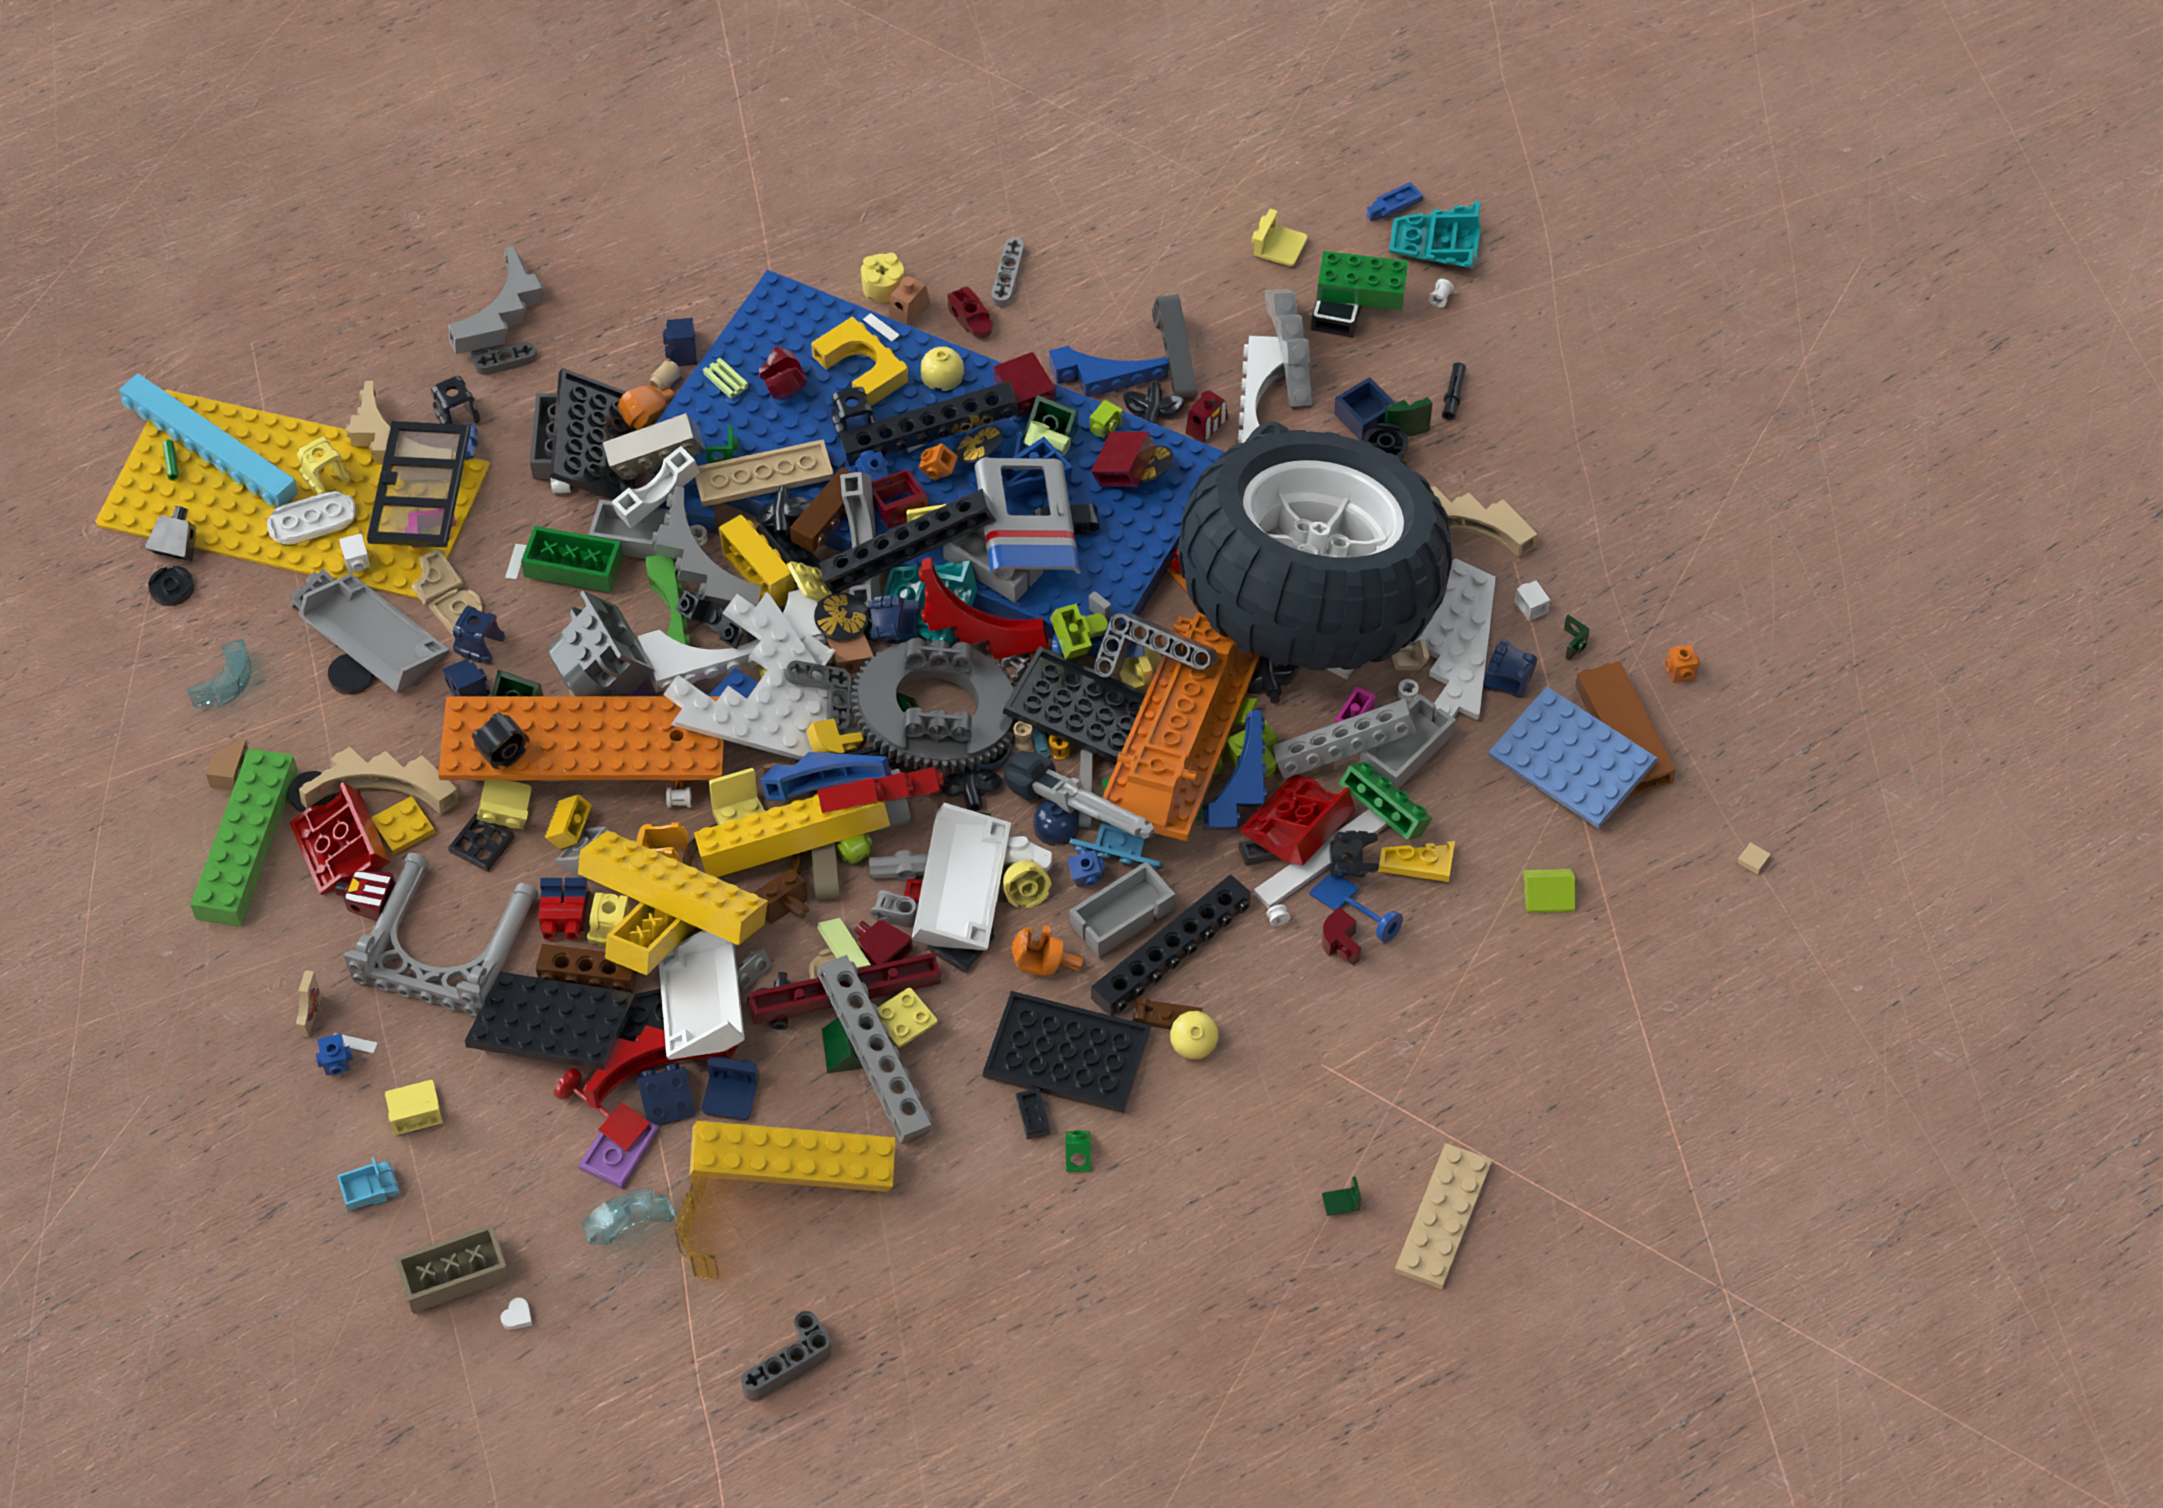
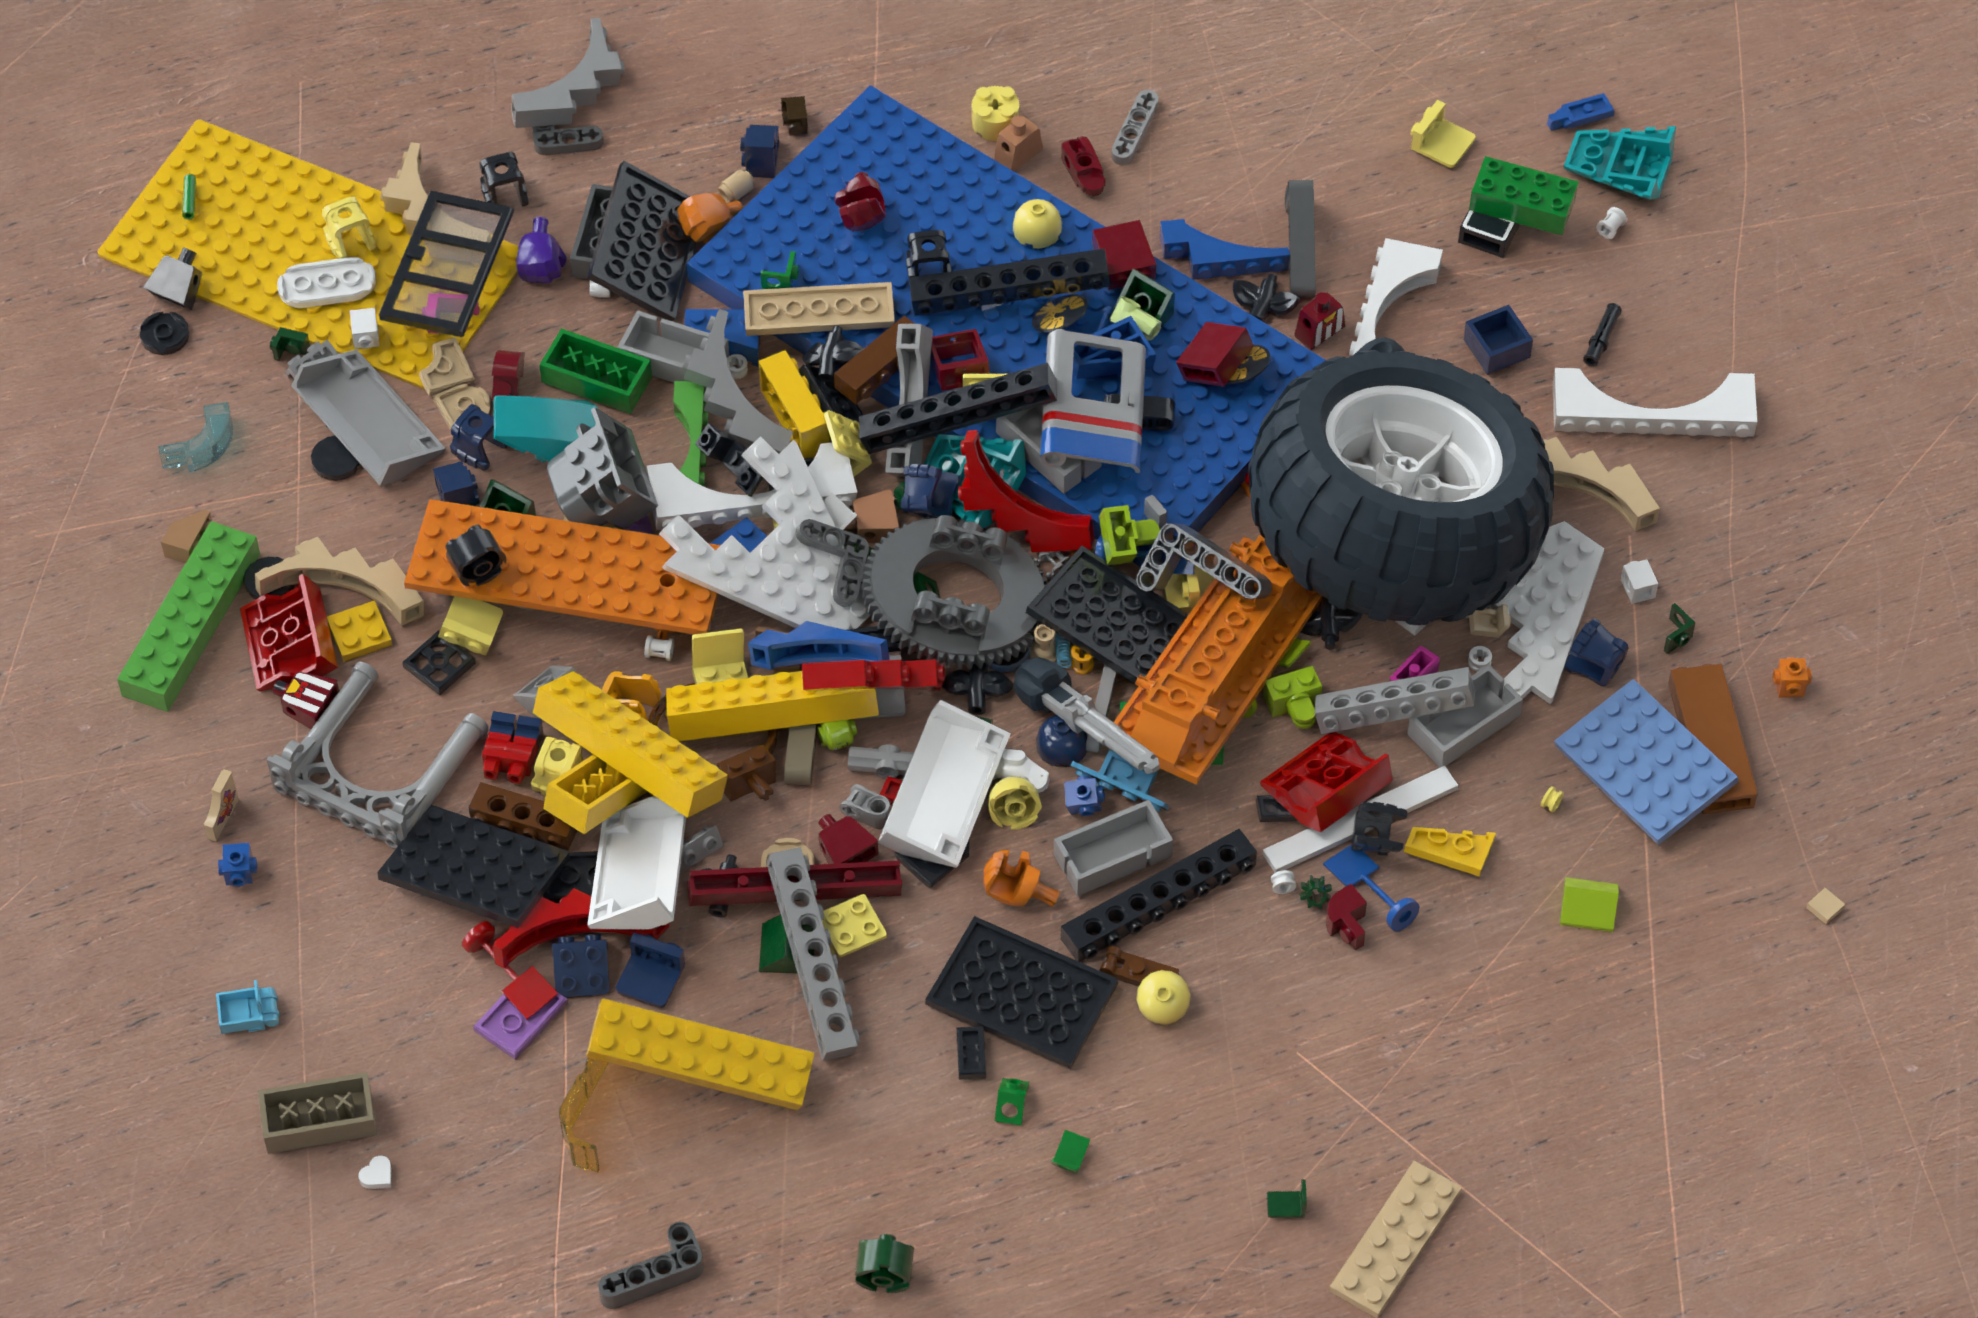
camera: 10 degrees right, 0 degrees up
(208, 441) = (232, 182): medium azure brick -> none
(289, 575) = (289, 340): none -> dark green bracket
(359, 1044) = (267, 857): white sticker -> none
(413, 1107) = (310, 934): light yellow bracket -> none
(473, 442) = (514, 226): blue axle -> none
(492, 574) = (506, 372): none -> dark red brick
(500, 464) = (539, 255): none -> dark purple piece
(515, 561) = (533, 368): white sticker -> none
(533, 613) = (539, 423): none -> teal wedge
(568, 821) = (535, 655): yellow brick -> none
(625, 1211) = (510, 1083): clear light blue arch -> none
(638, 503) = (676, 321): white arch -> none
(649, 446) = (706, 262): brick -> none
(704, 305) = (794, 114): none -> dark brown brick
(727, 378) = (790, 185): yellowish green tile -> none
(826, 739) = (828, 610): yellow brick -> none
(841, 616) = (872, 479): shield -> none
(842, 942) = (802, 833): yellowish green tile -> none
(854, 339) = (947, 176): yellow arch -> none
(872, 464) = (938, 318): blue brick -> none
(881, 327) = (980, 167): white sticker -> none
(937, 462) = (1010, 326): orange brick -> none
(995, 1317) = (884, 1264): none -> dark green brick
(1105, 419) = (1205, 307): lime brick -> none
(1140, 1187) = (1070, 1151): none -> green bracket
(1246, 783) = (1276, 733): blue arch -> none
(1294, 347) = (1430, 256): light grey arch -> none
(1304, 913) = (1312, 898): none -> dark green gear
(1386, 800) = (1427, 775): green brick -> none
(1388, 438) = (1514, 379): black cylinder -> none
(1412, 418) = (1539, 358): dark green slope -> none
(1452, 457) = (1587, 409): none -> white arch
(1497, 803) = (1552, 799): none -> light yellow bush

